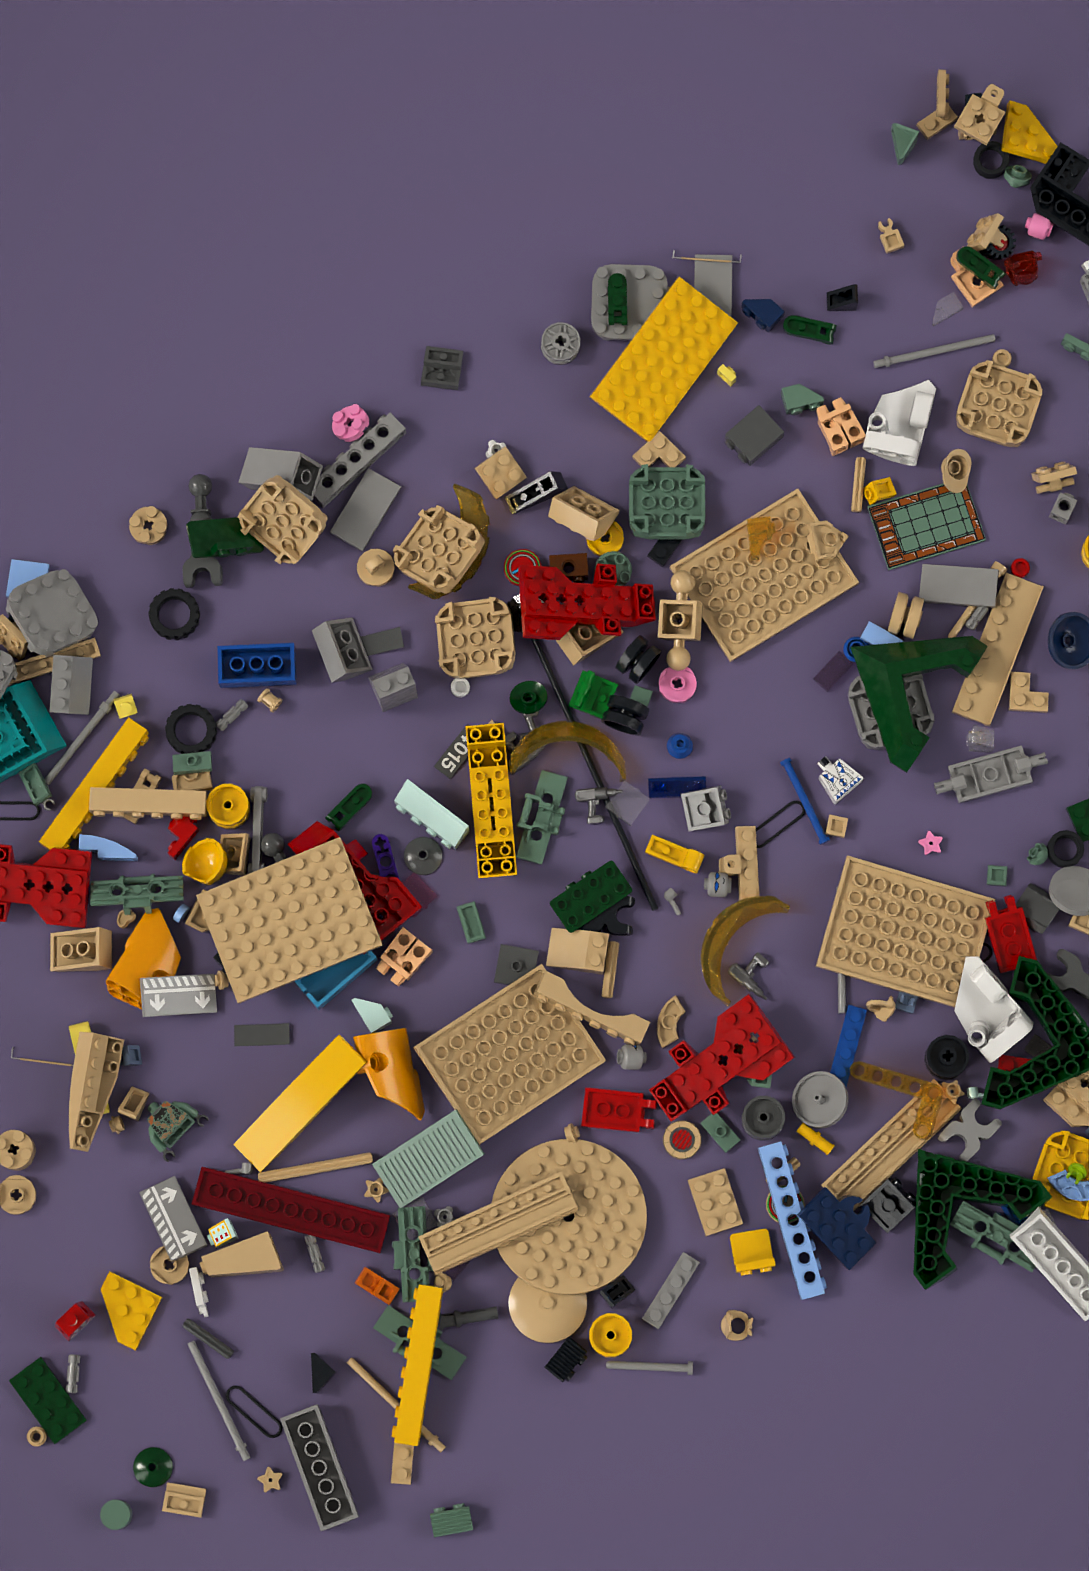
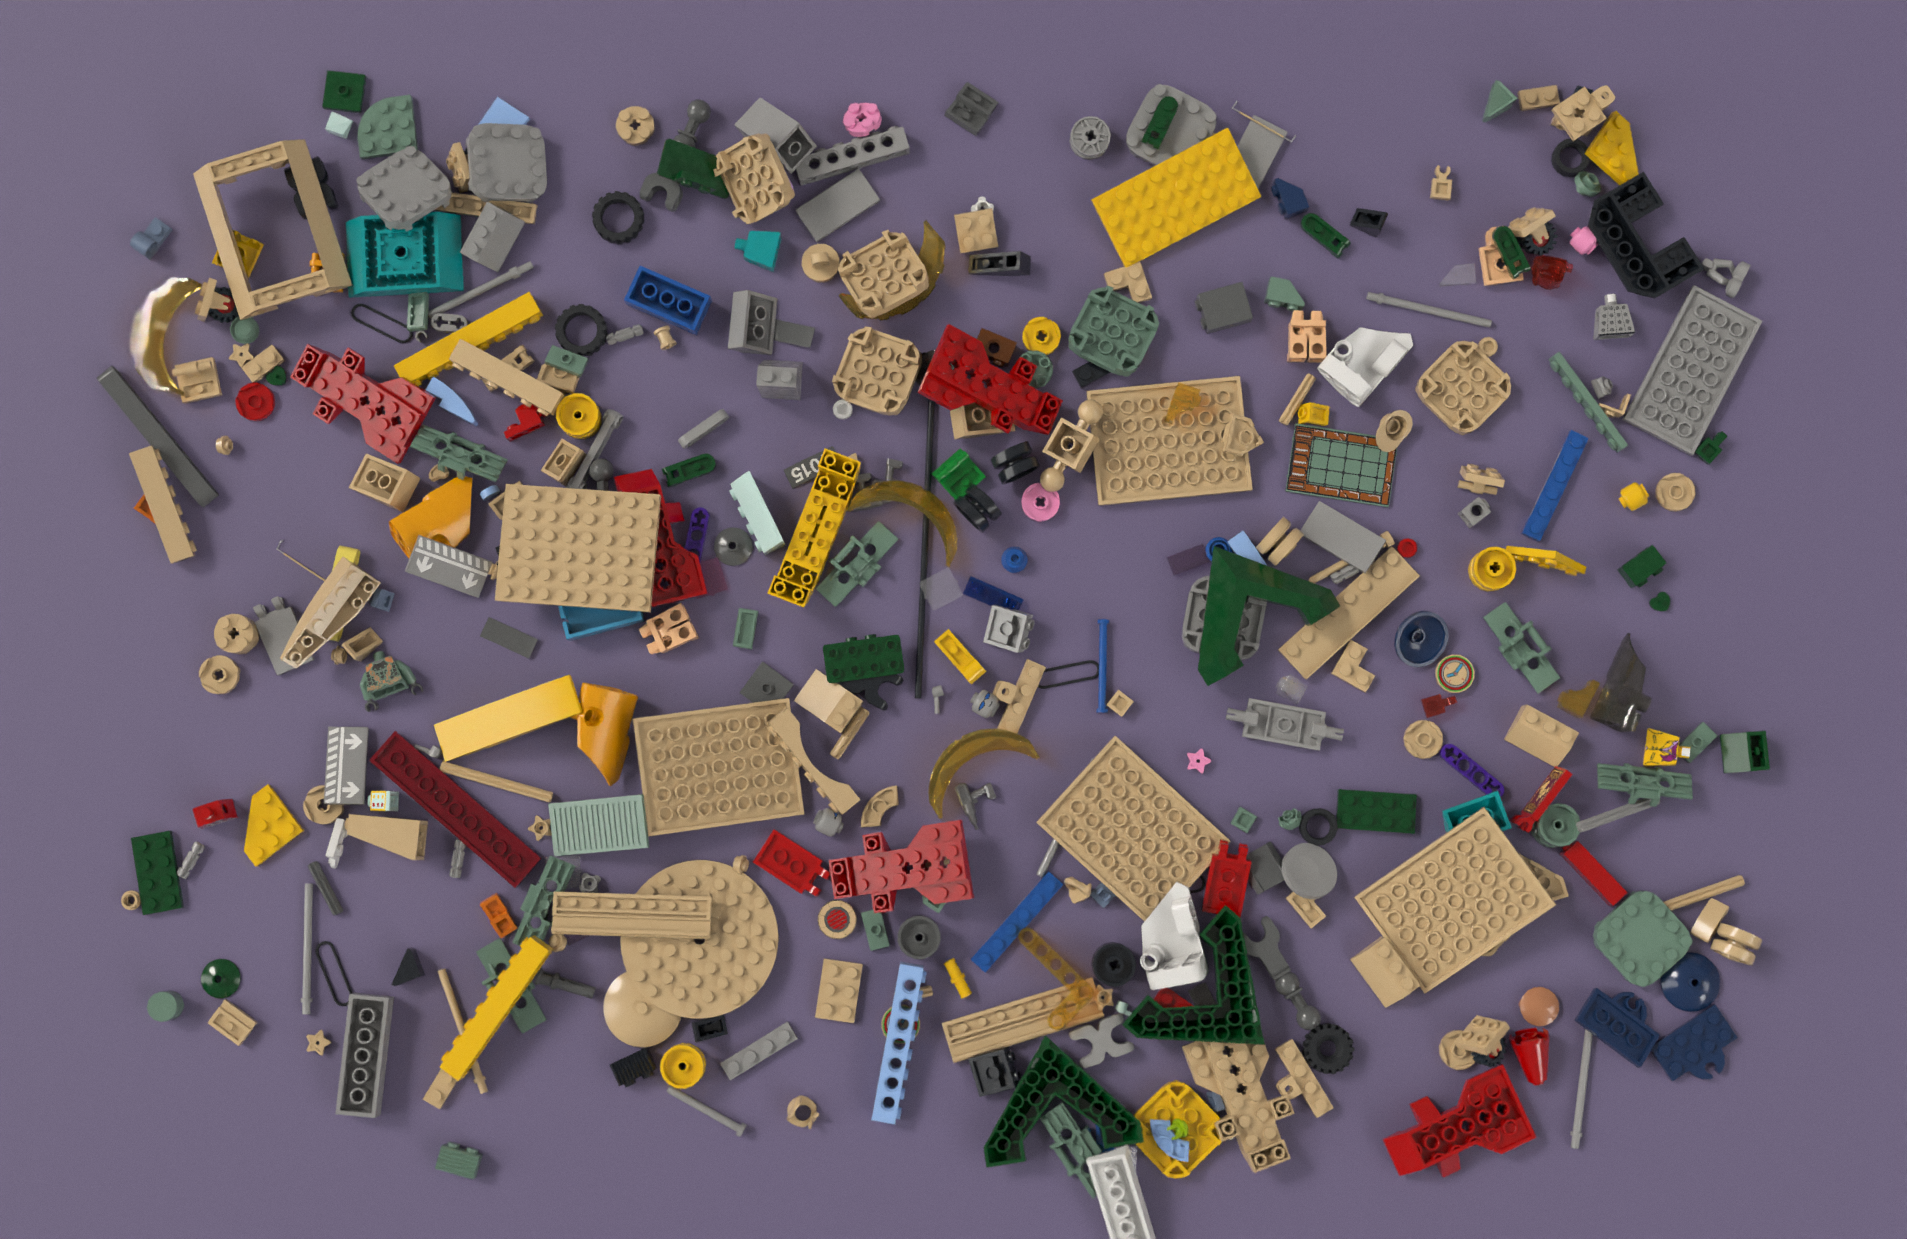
camera: 25 degrees right, 5 degrees up
(51, 1131) = (275, 631): none -> light grey tile
(67, 776) = (450, 318): none -> light grey beam
(125, 706) = (533, 280): light yellow plate -> none
(205, 861) = (533, 457): yellow cylinder -> none
(316, 580) = (760, 248): none -> teal torso
(344, 764) = (703, 428): none -> light grey beam
(373, 1014) = (615, 669): light aqua slope -> none
(518, 558) = (954, 317): tile -> none
(528, 691) = (898, 442): dark green dish -> none
(582, 513) = (1031, 303): tan slope -> none
(593, 795) = (912, 567): flat silver piece -> none
(641, 695) = (1001, 498): sand green tile -> none
(727, 374) = (1227, 239): light yellow plate -> none
(752, 1251) = (849, 1053): yellow bracket -> none
(820, 1099) = (979, 945): light grey piece -> none
(838, 778) = (1142, 660): torso -> none
(839, 1226) = (938, 1069): dark blue plate -> none
(942, 106) = (1556, 74): tan plate -> none

